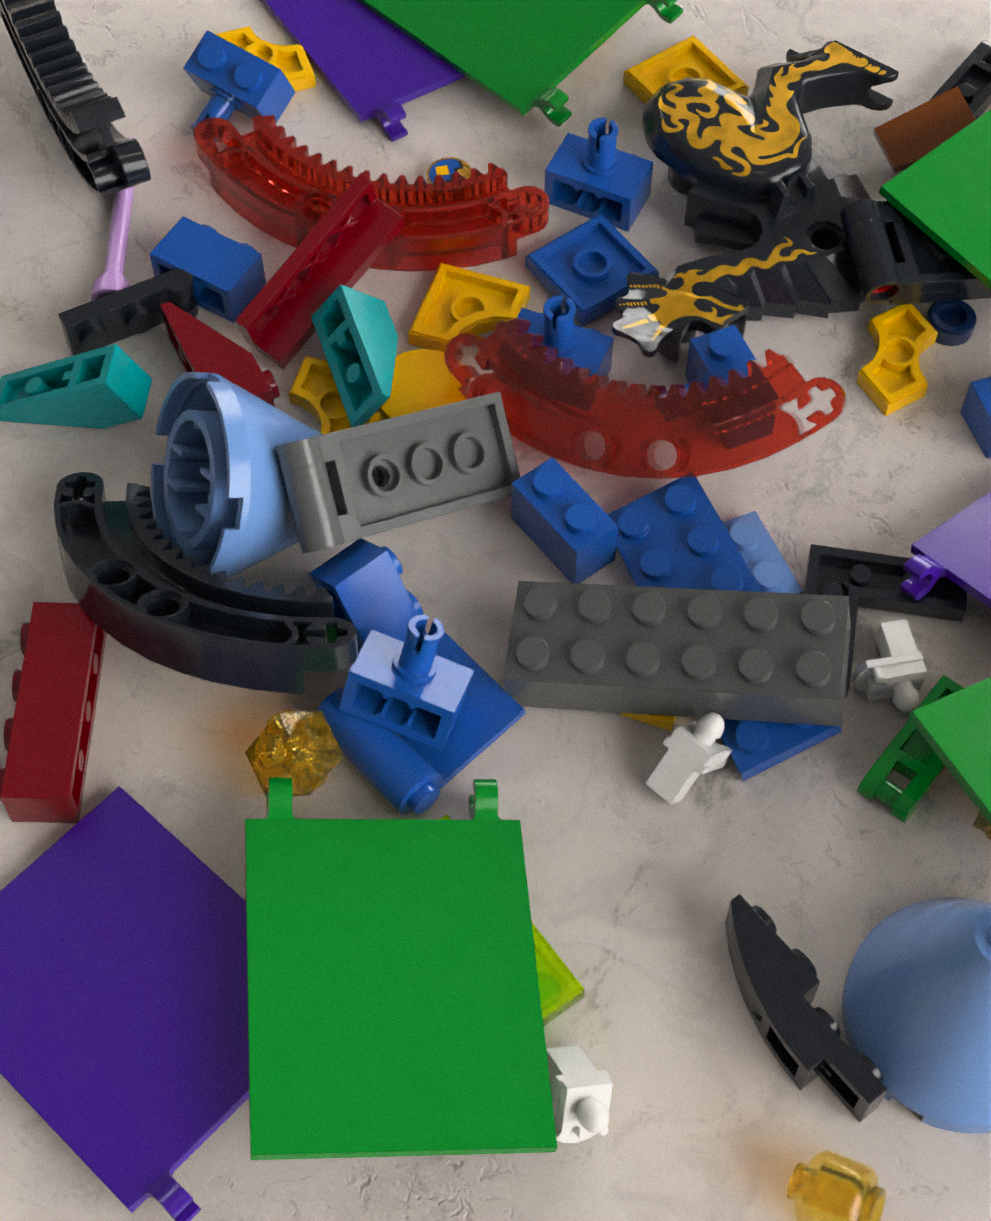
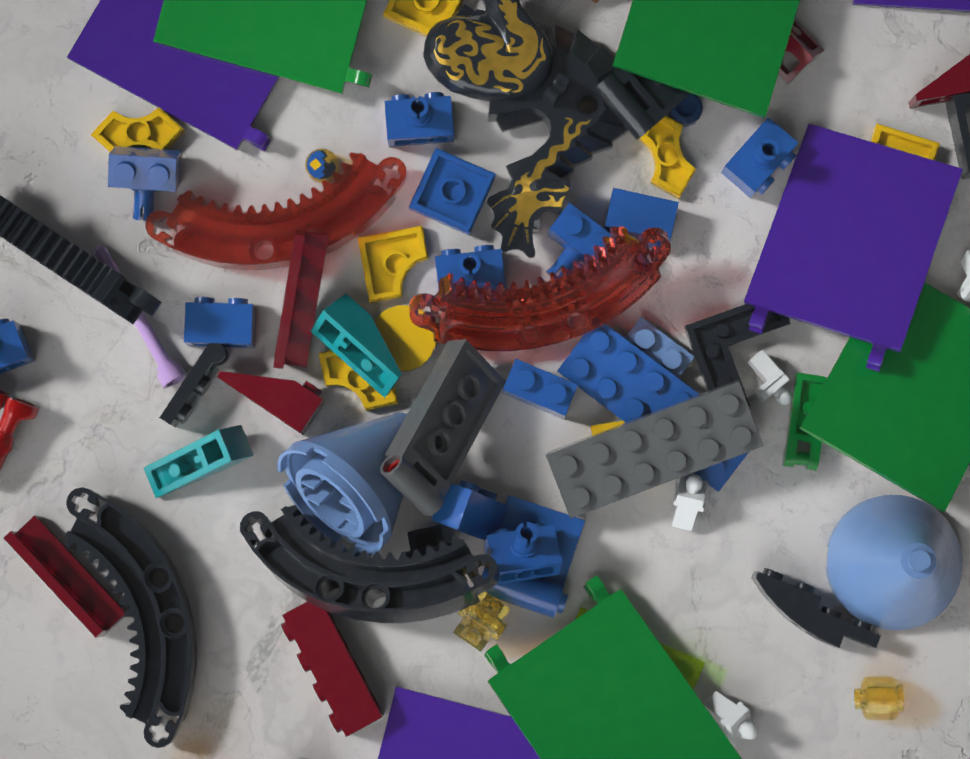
camera: 30 degrees left, 25 degrees up
(861, 398) = (639, 213): none -> blue brick

